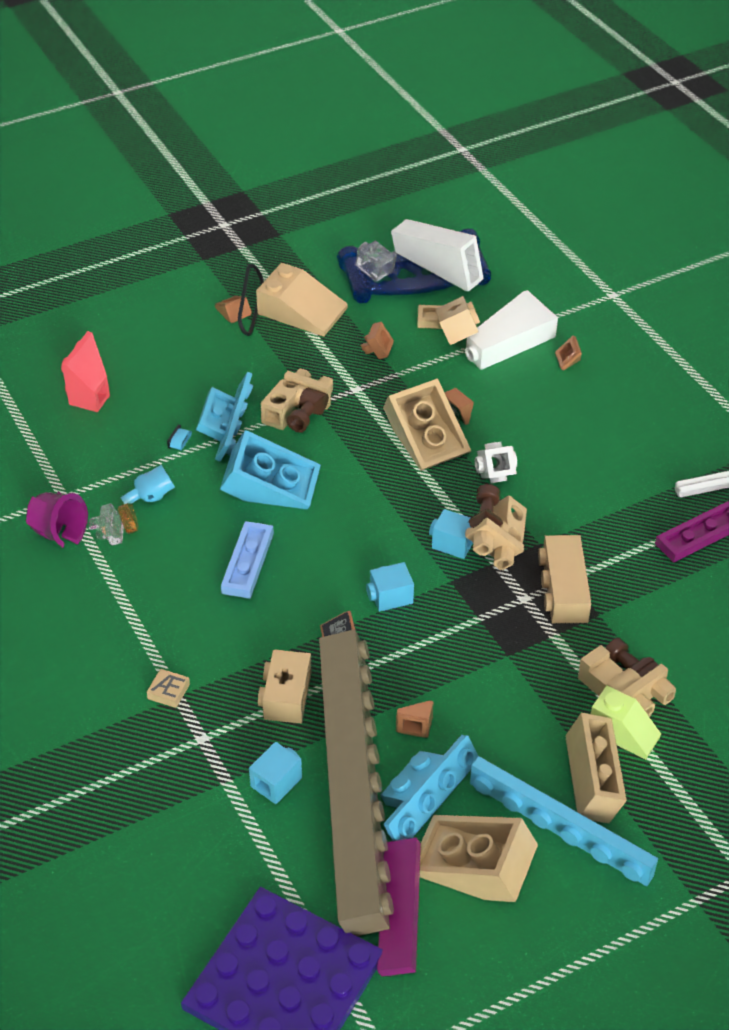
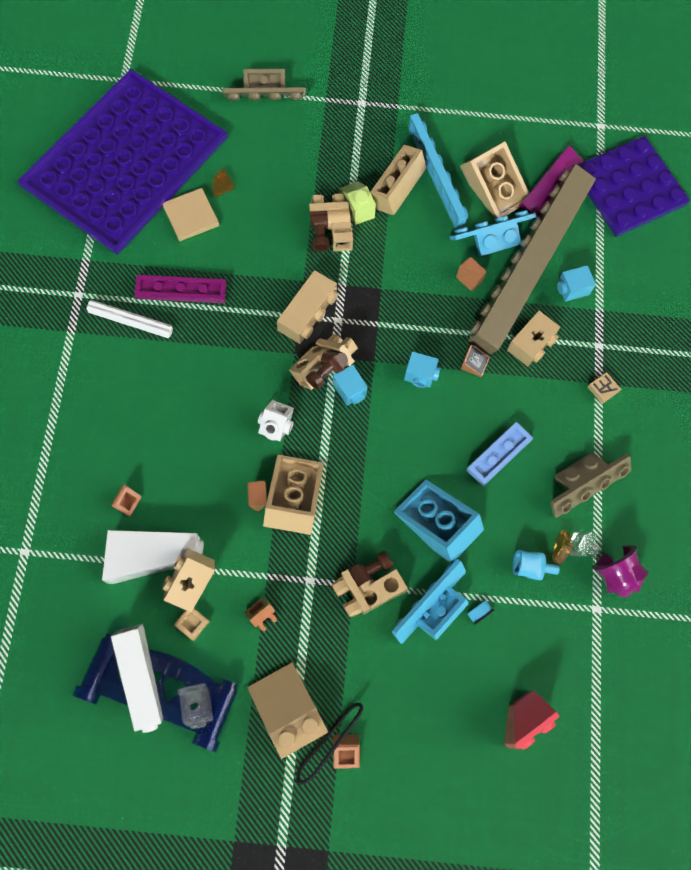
camera: 150 degrees left, 25 degrees up
(140, 587) = (586, 479): none -> dark tan bracket

